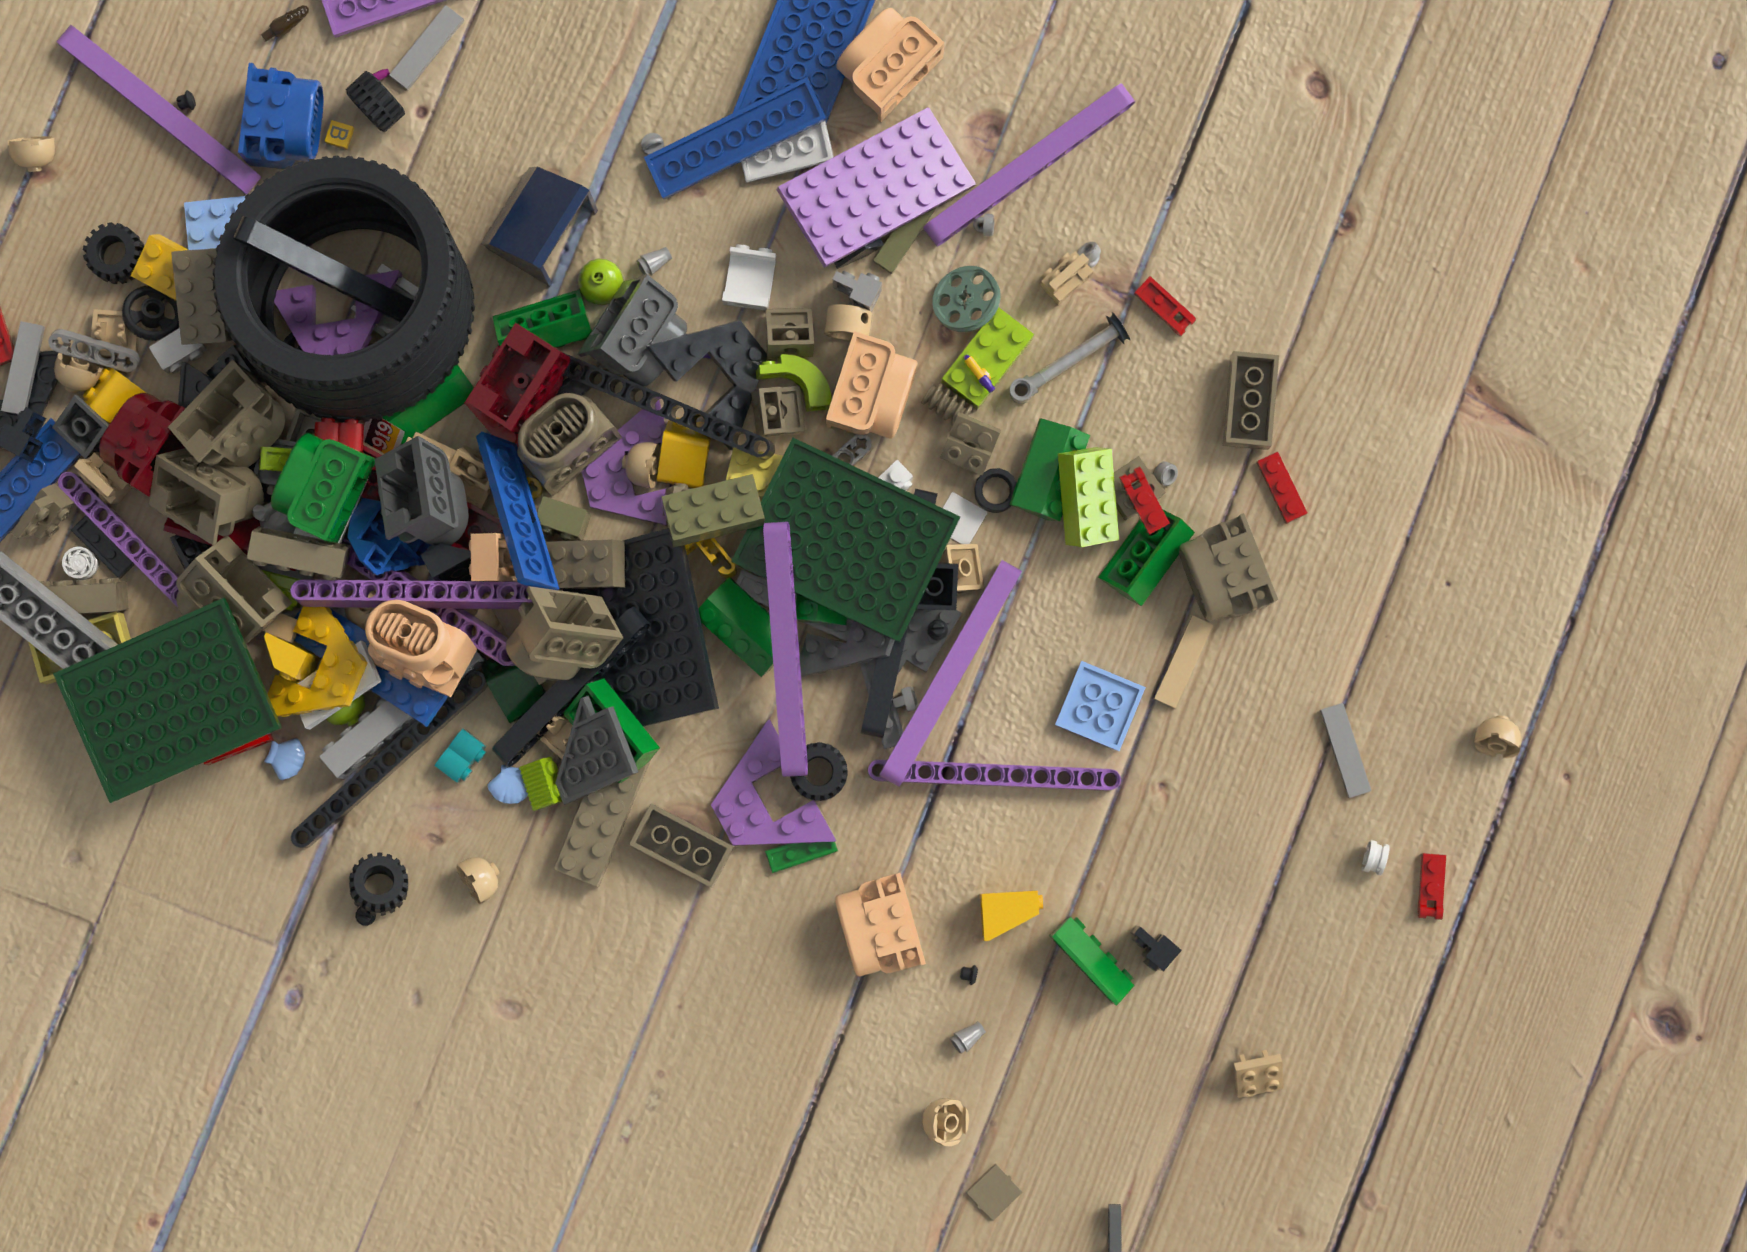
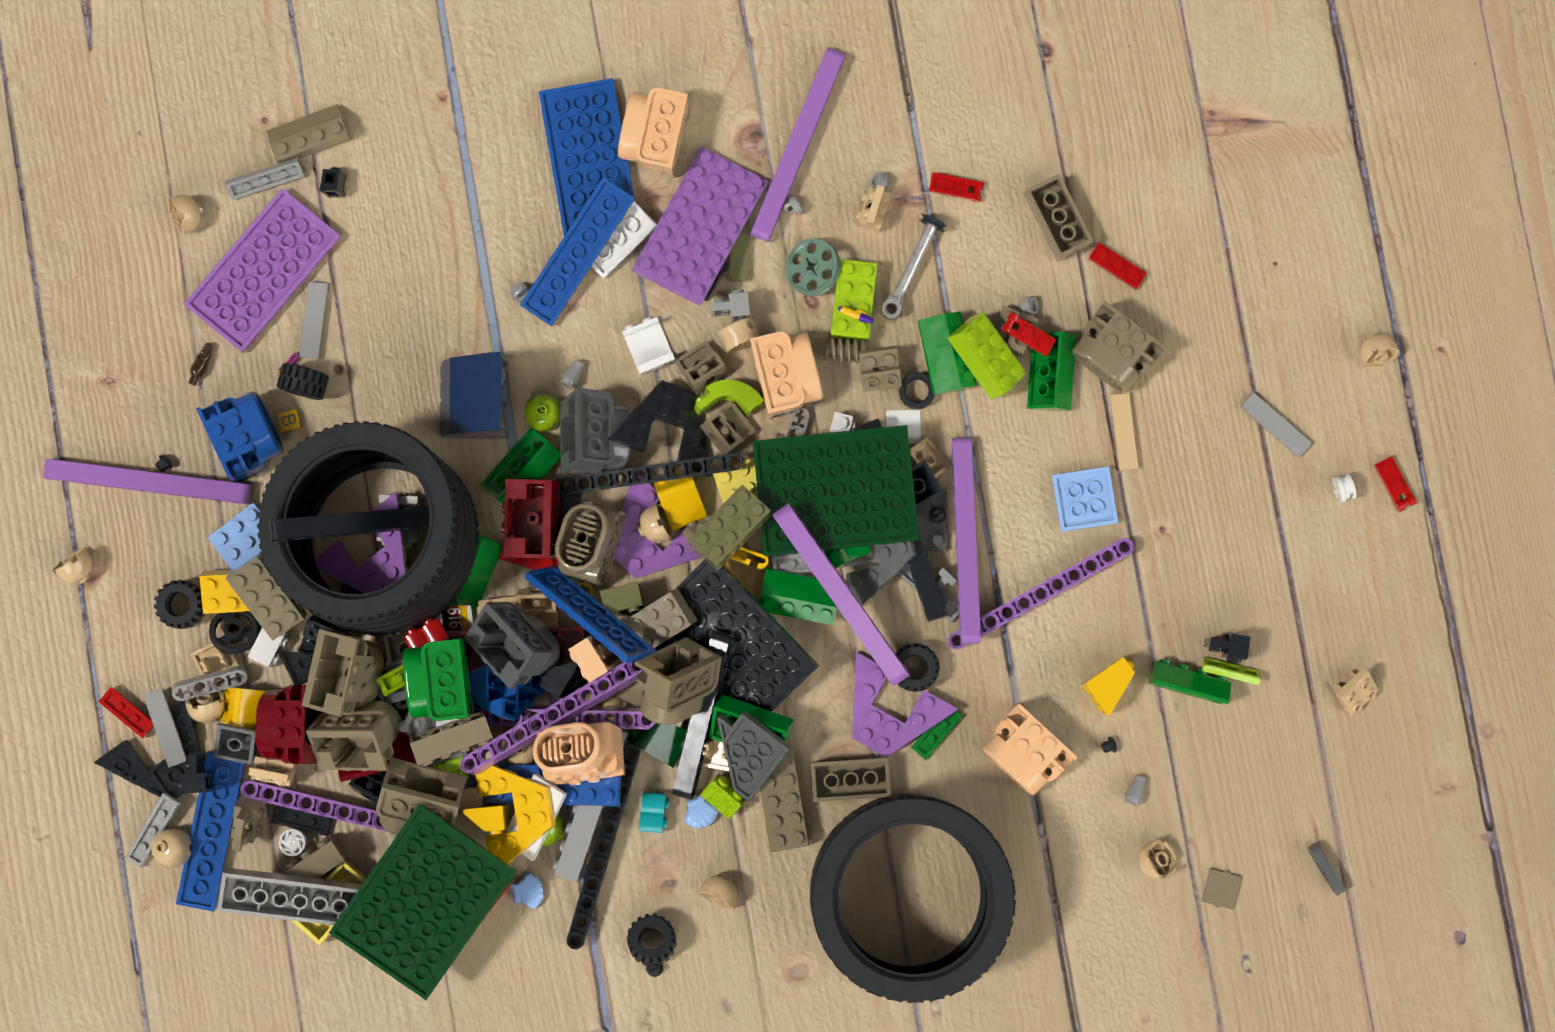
camera: 30 degrees left, 0 degrees up
(580, 1057) = (967, 960): none -> black tyre
(1142, 974) = (1231, 670): none -> lime tile

